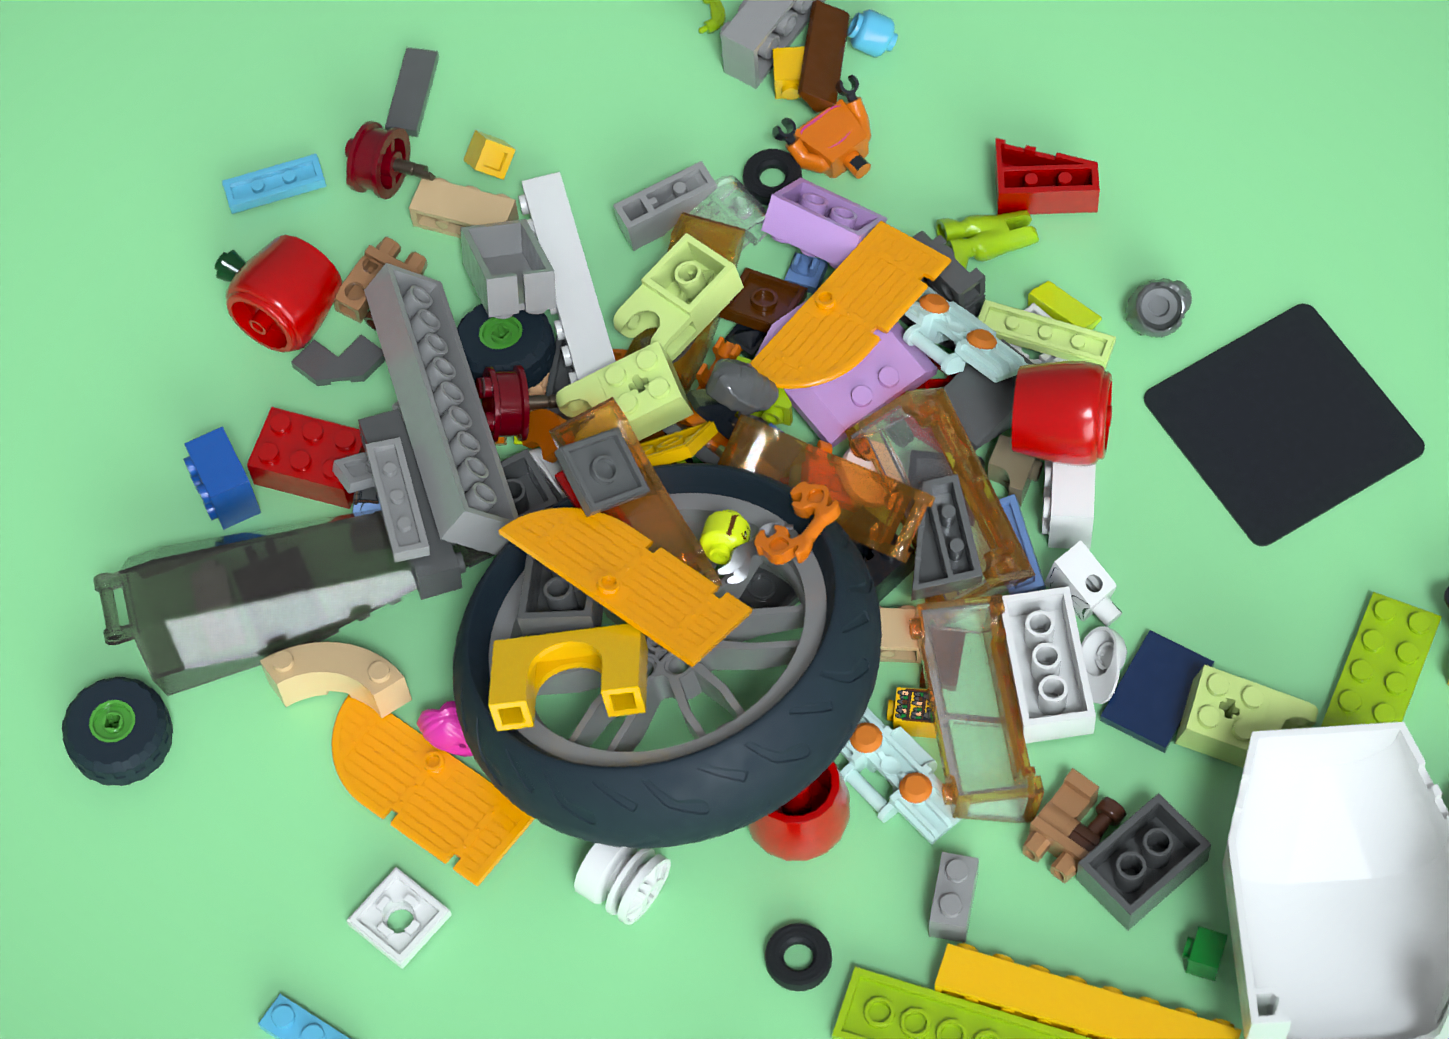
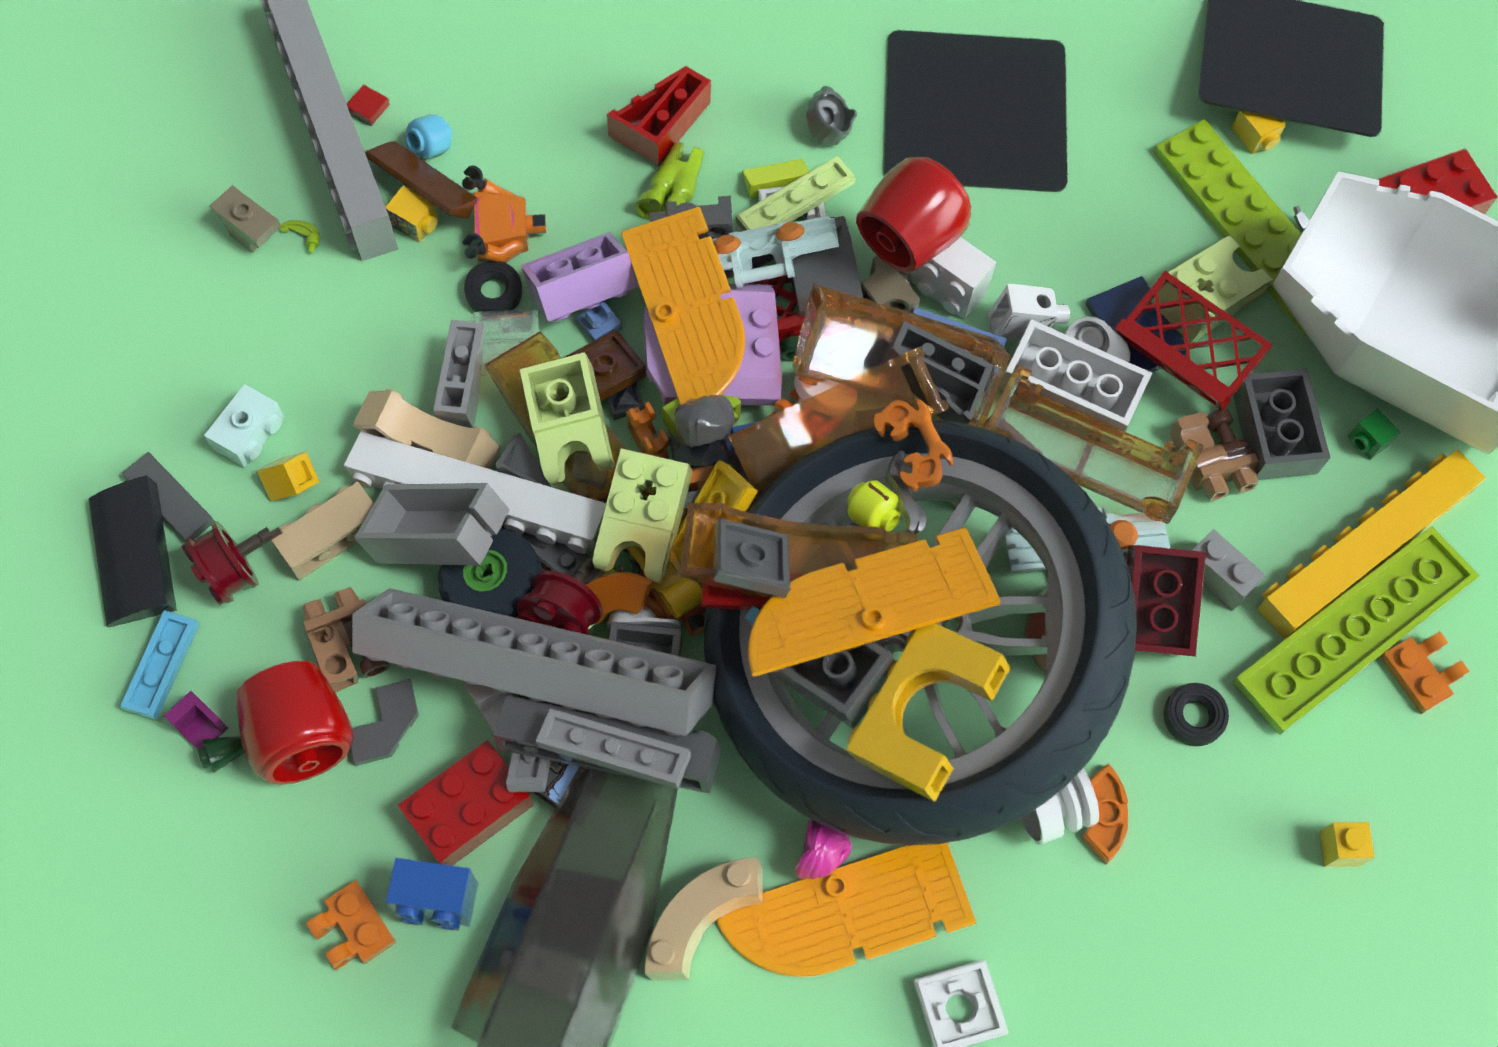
camera: 65 degrees left, 5 degrees up
(166, 462) = (359, 922): none -> orange plate
(249, 233) = (195, 720): none -> magenta panel
(349, 101) = (131, 551): none -> black slope
(507, 96) = (244, 426): none -> light aqua brick
(596, 225) = (393, 418): none -> tan brick
(612, 293) = (519, 462): none -> dark grey slope
(653, 938) = (1110, 831): none -> orange tile
(872, 854) = (1167, 598): none -> dark red brick
(1126, 731) = (1174, 362): none -> red fence

